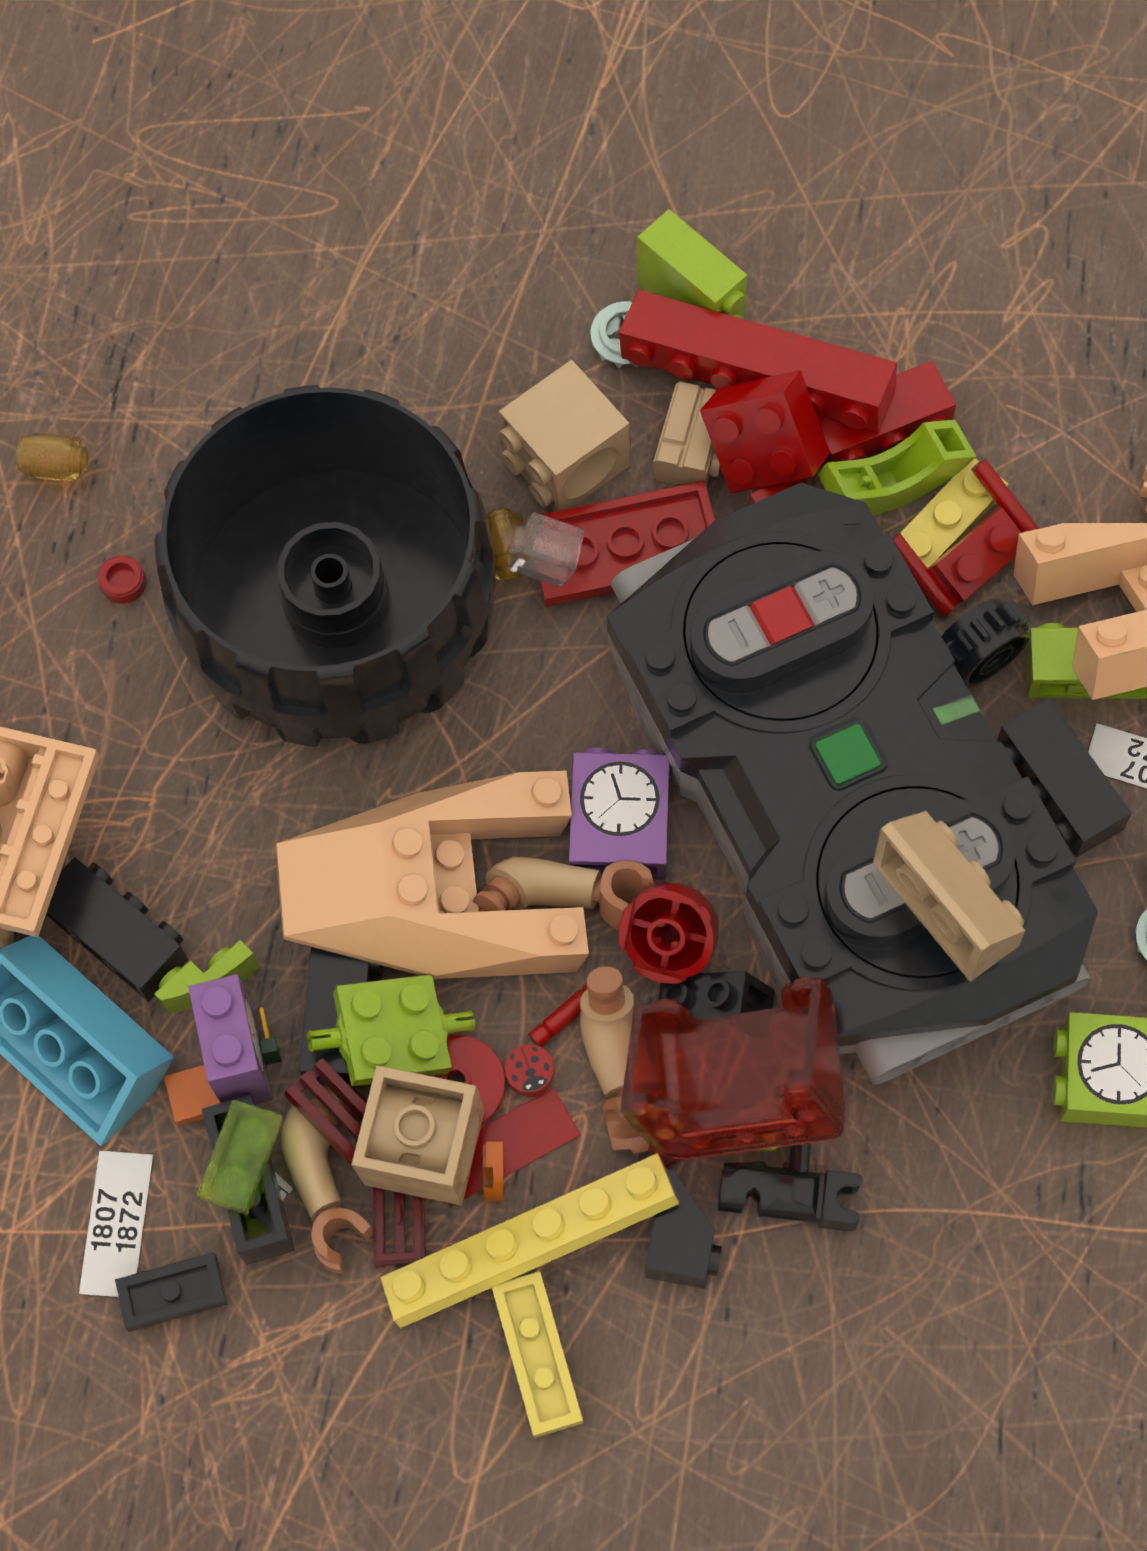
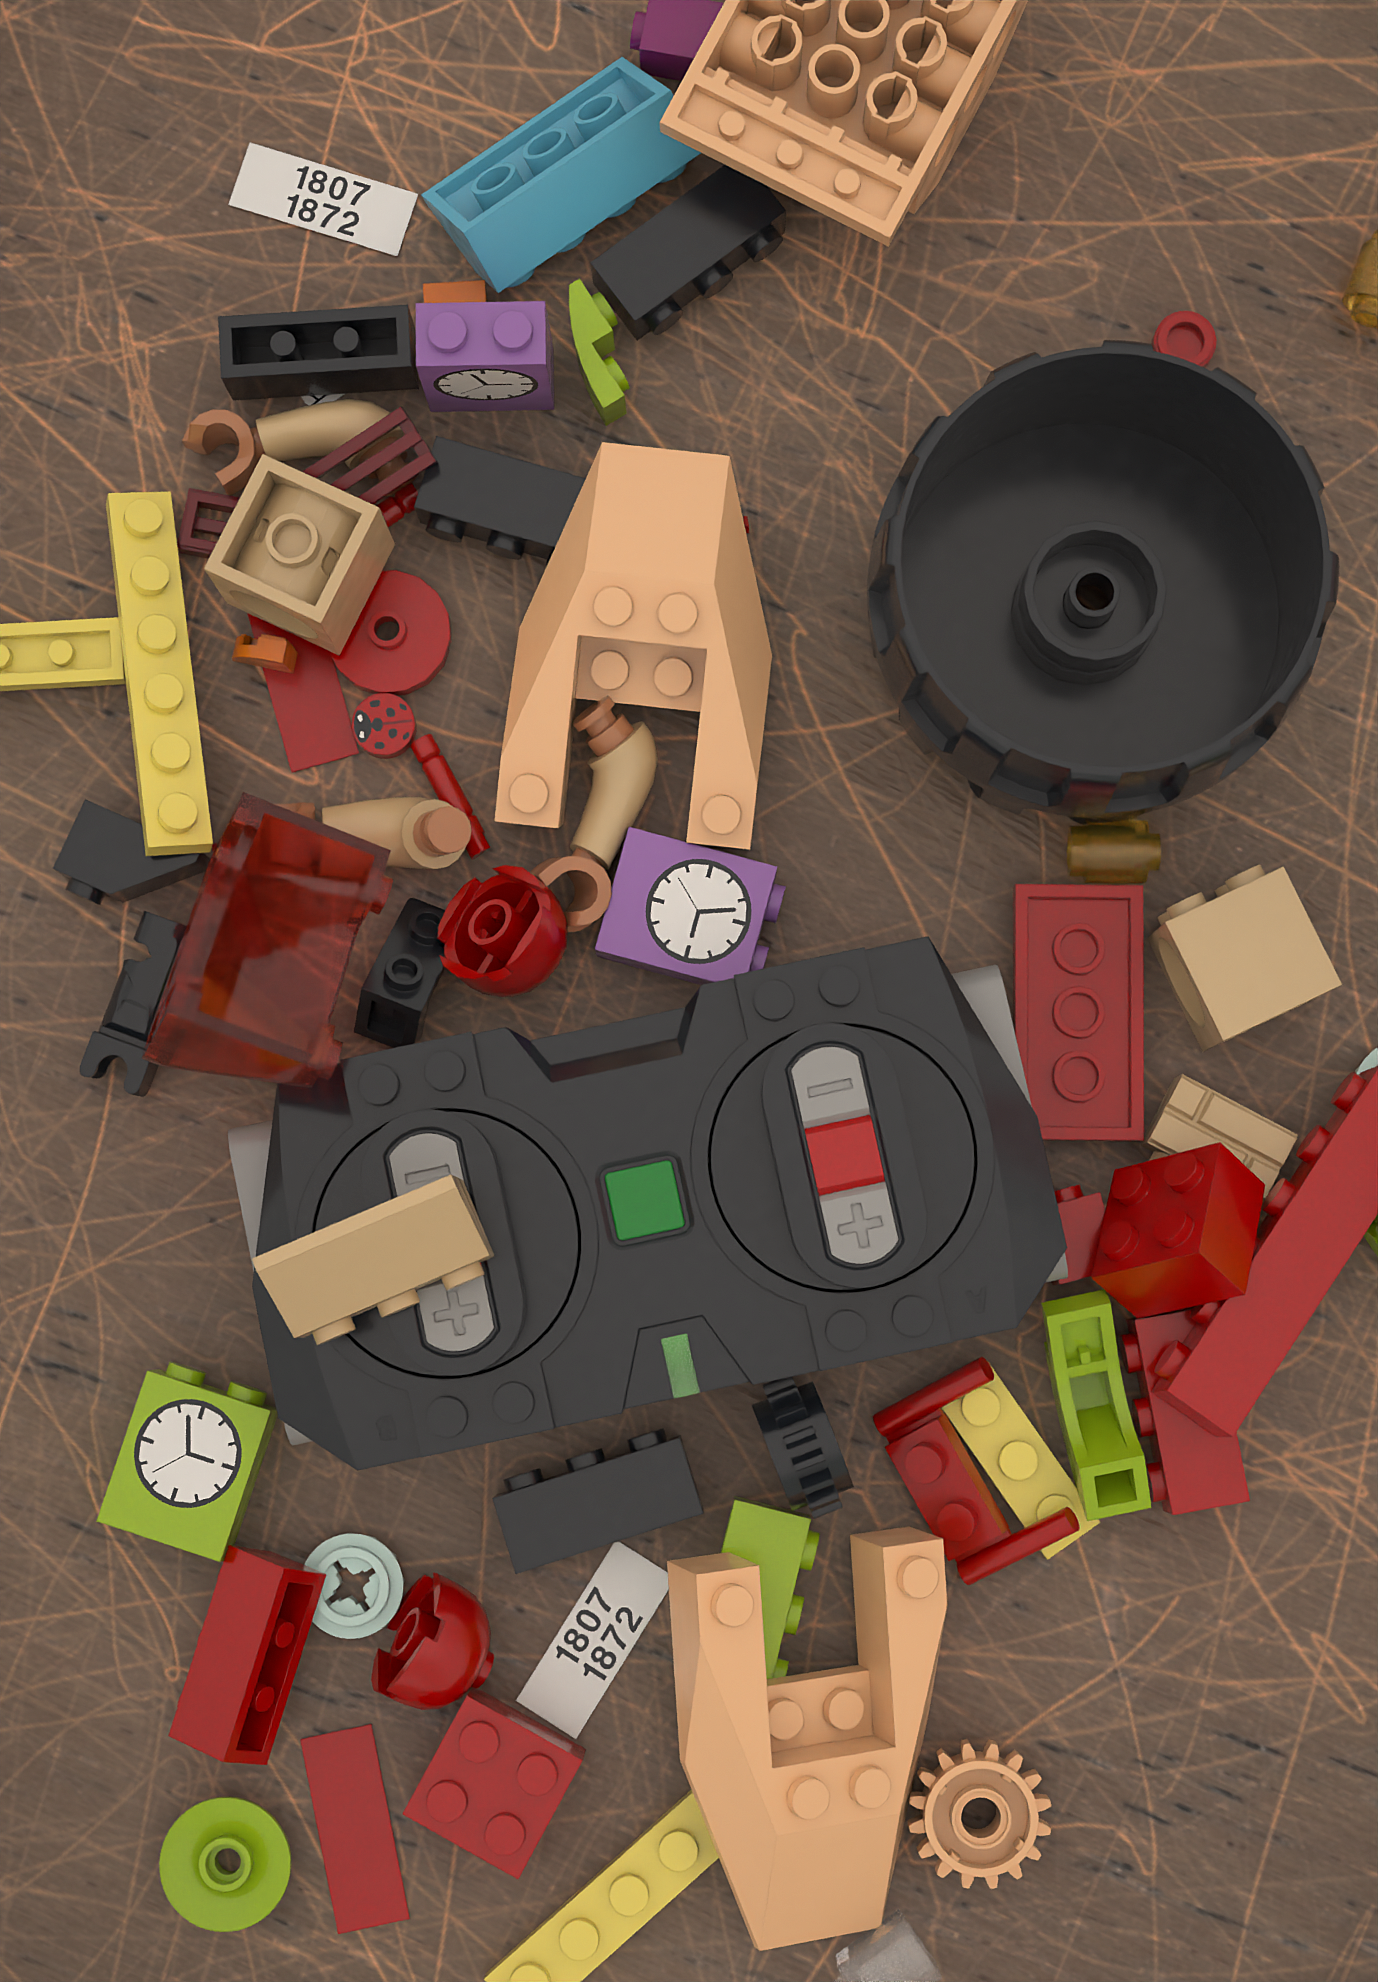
camera: 105 degrees right, 15 degrees up
(171, 1292) = (215, 244): black plate -> none
(239, 1157) = (325, 333): clear neon green plate -> none
(269, 1045) = (488, 415): dark green piece -> none
(391, 1027) = (457, 556): lime plate -> none
(545, 549) = (1074, 892): clear brick -> none

